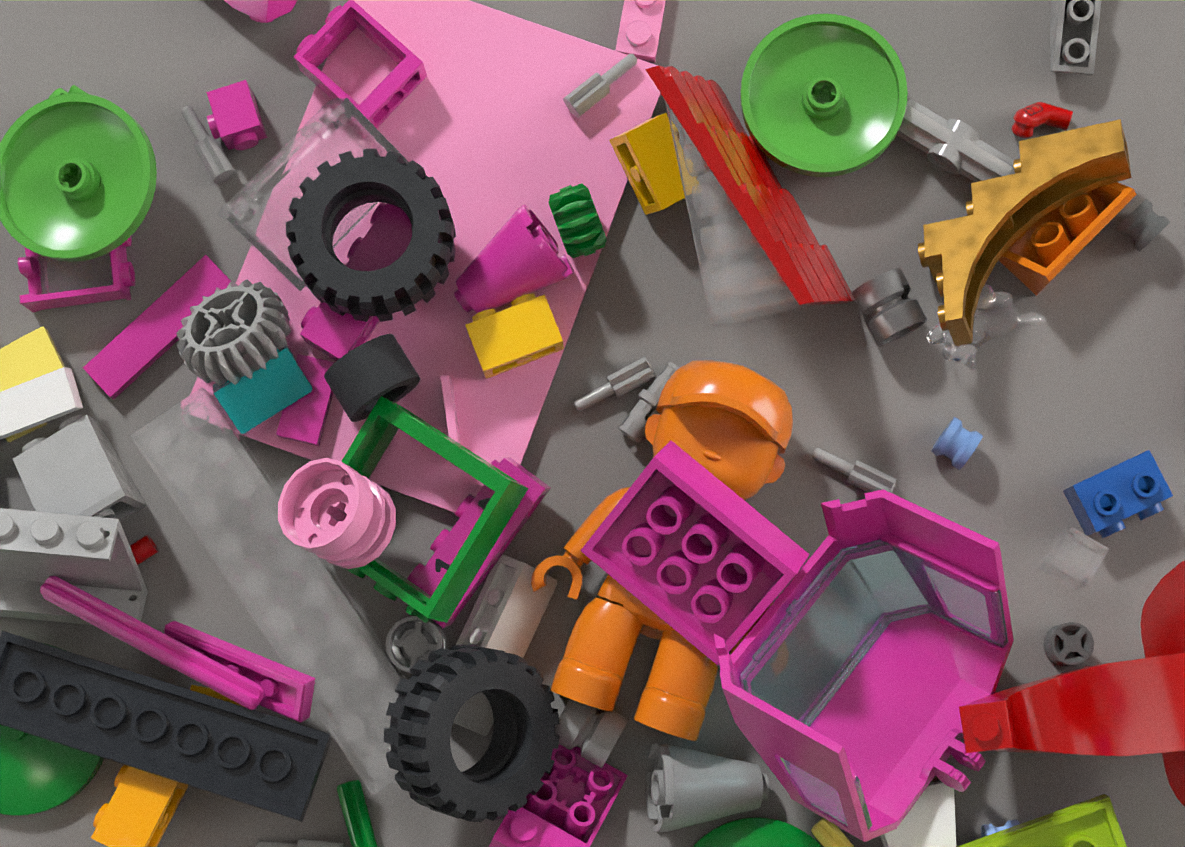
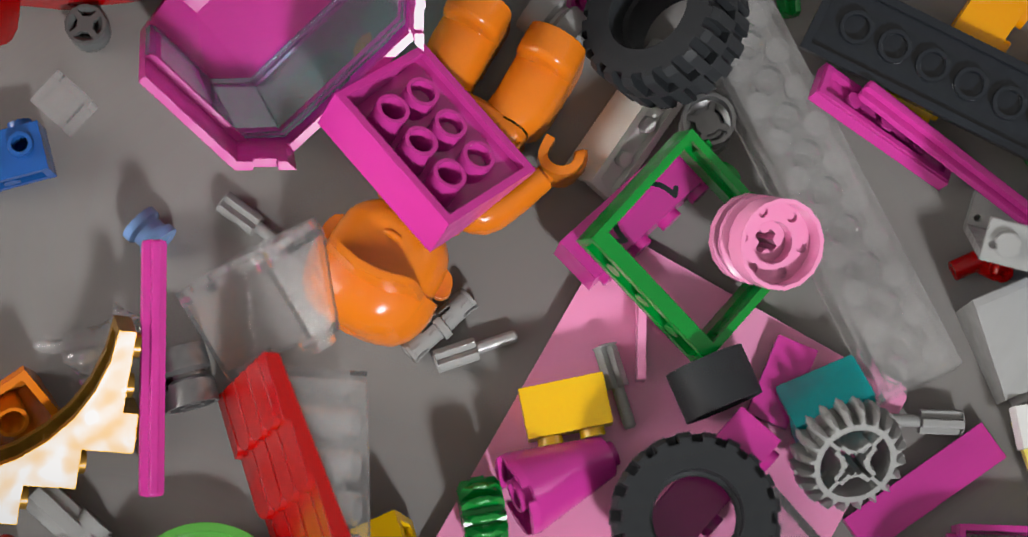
camera: 175 degrees left, 0 degrees up
(160, 389) = (934, 421): none -> light grey axle
(471, 374) = (615, 380): none -> light grey axle
(826, 389) = (266, 299): none -> clear windscreen
(923, 303) = (152, 368): none -> dark pink axle

